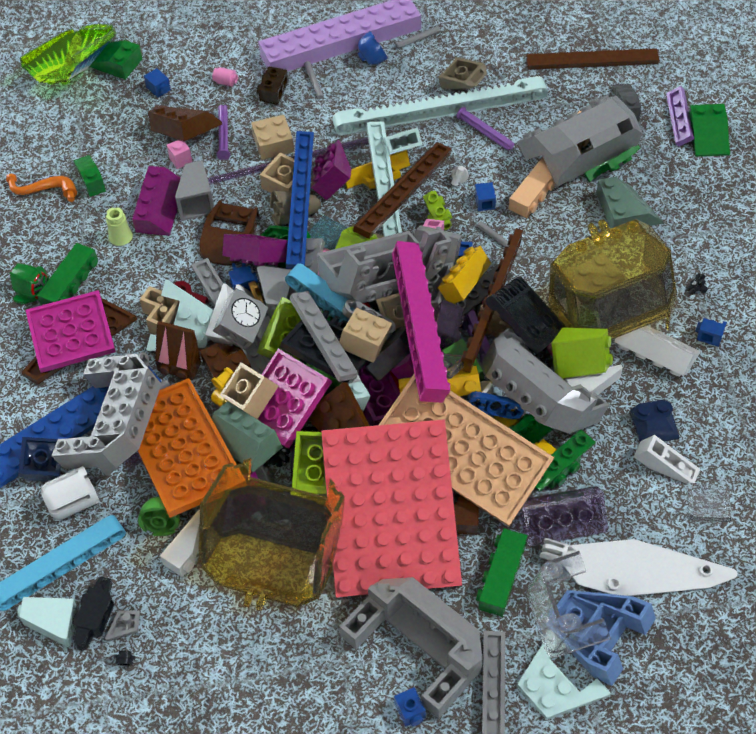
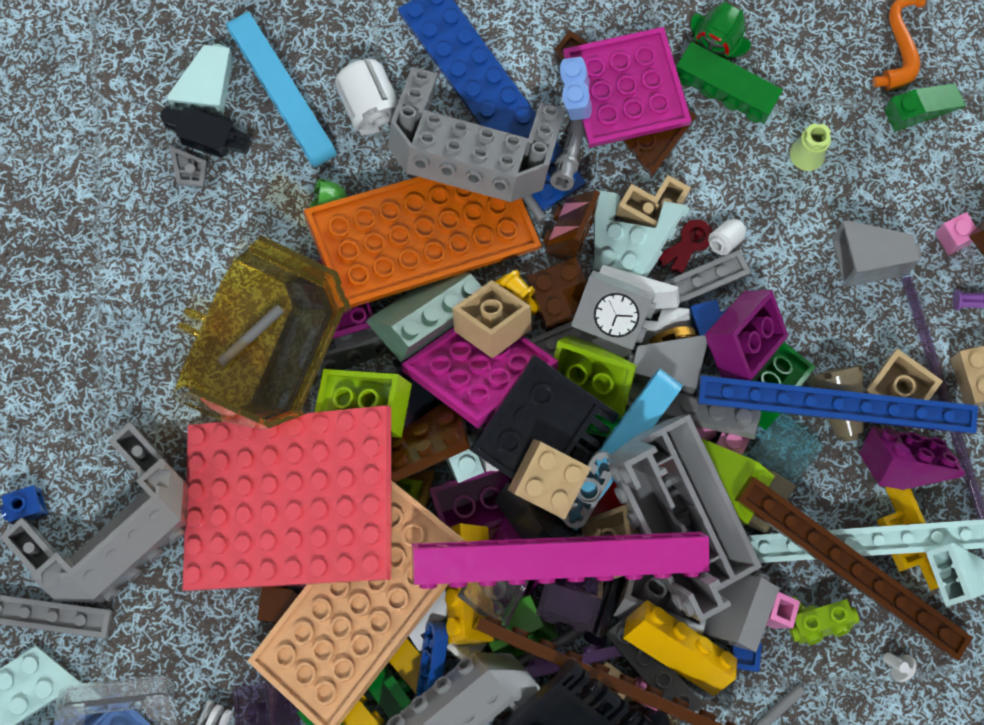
camera: 90 degrees right, 20 degrees up
(36, 460) = (428, 52): dark blue slope -> none
(68, 353) = (576, 87): none -> light blue brick
(124, 658) = (141, 168): black plate -> none
(156, 202) = (862, 198): magenta slope -> none
(182, 271) = (727, 236): none -> white brick
(182, 551) = (276, 229): white slope -> none
(212, 237) = (788, 284): reddish brown slope -> none
(263, 558) = (250, 335): none -> light grey bar
(323, 336) = (549, 417): light grey plate -> none
(485, 196) = (853, 703): blue brick -> none
(502, 572) = (191, 646): green brick -> none

